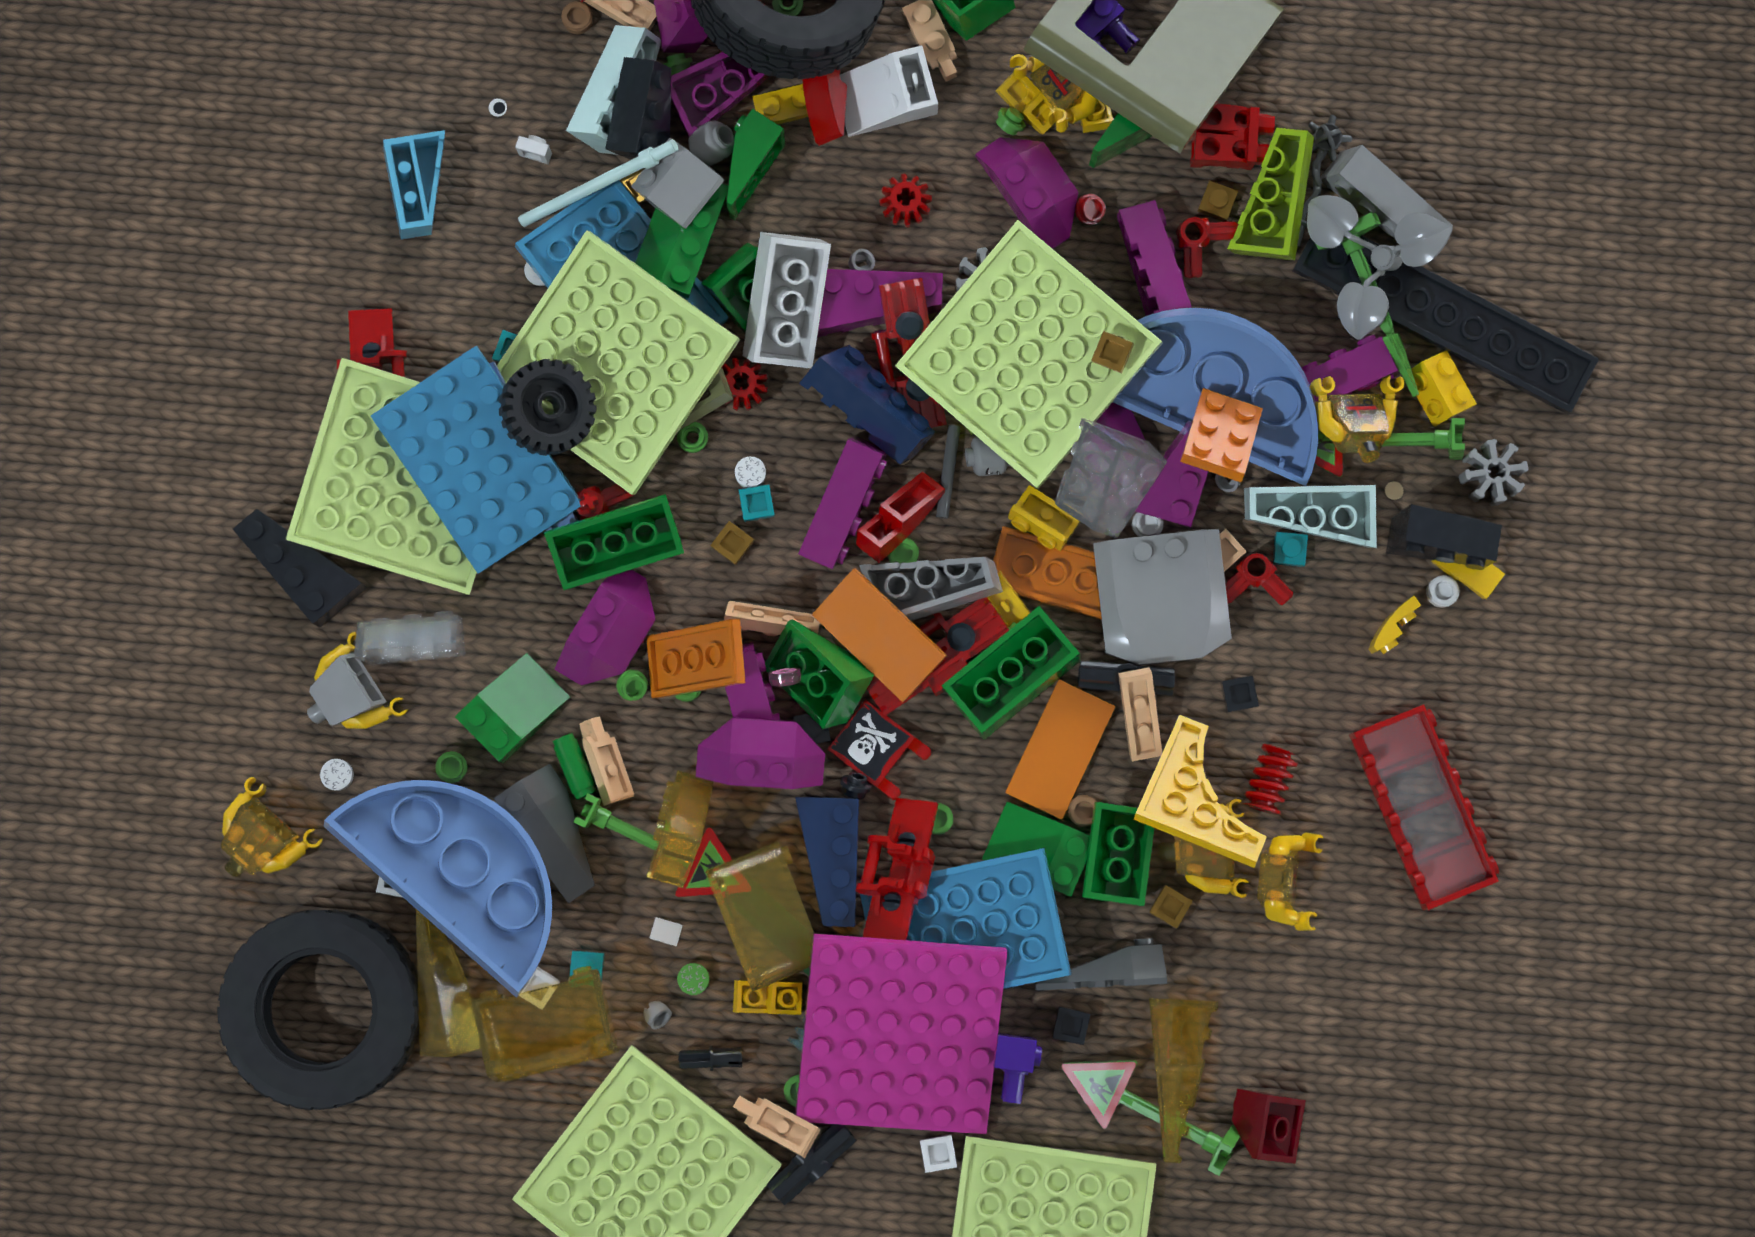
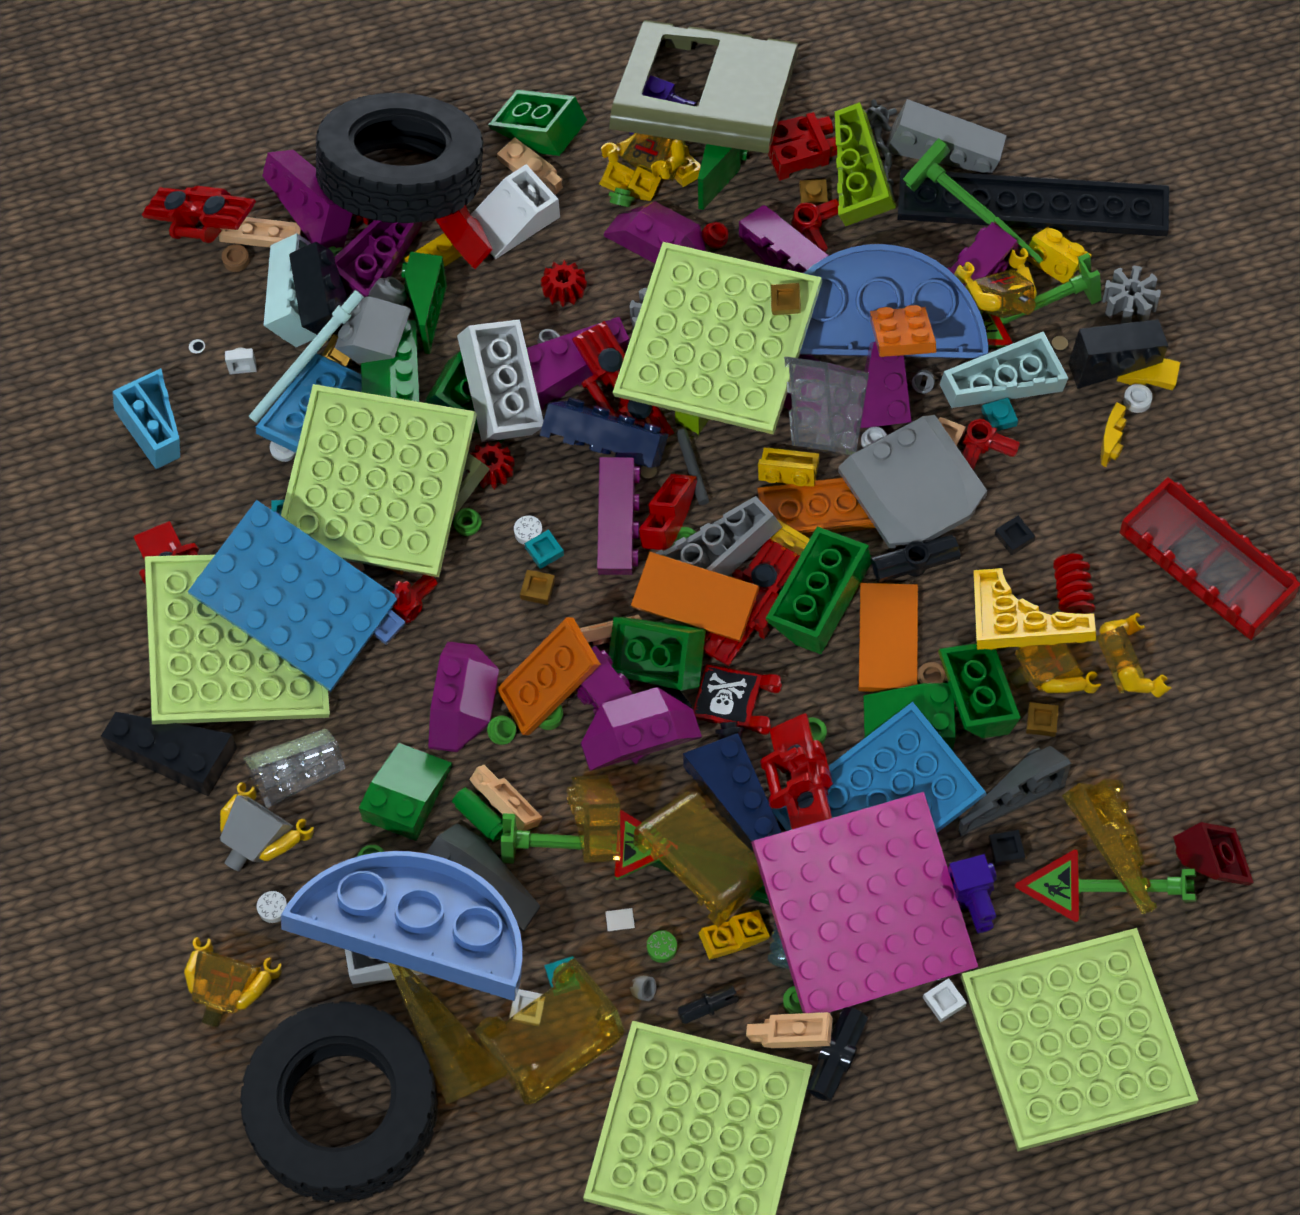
camera: 20 degrees left, 20 degrees down
(524, 413) = (337, 524): black wheel -> none
(614, 542) = (436, 615): green slope -> none
(784, 677) = (630, 661): clear pink tile -> none
(984, 459) = (720, 439): light grey head -> none
(1140, 714) = (941, 576): light nougat plate -> none
(1419, 241) = (968, 207): light grey plant -> none

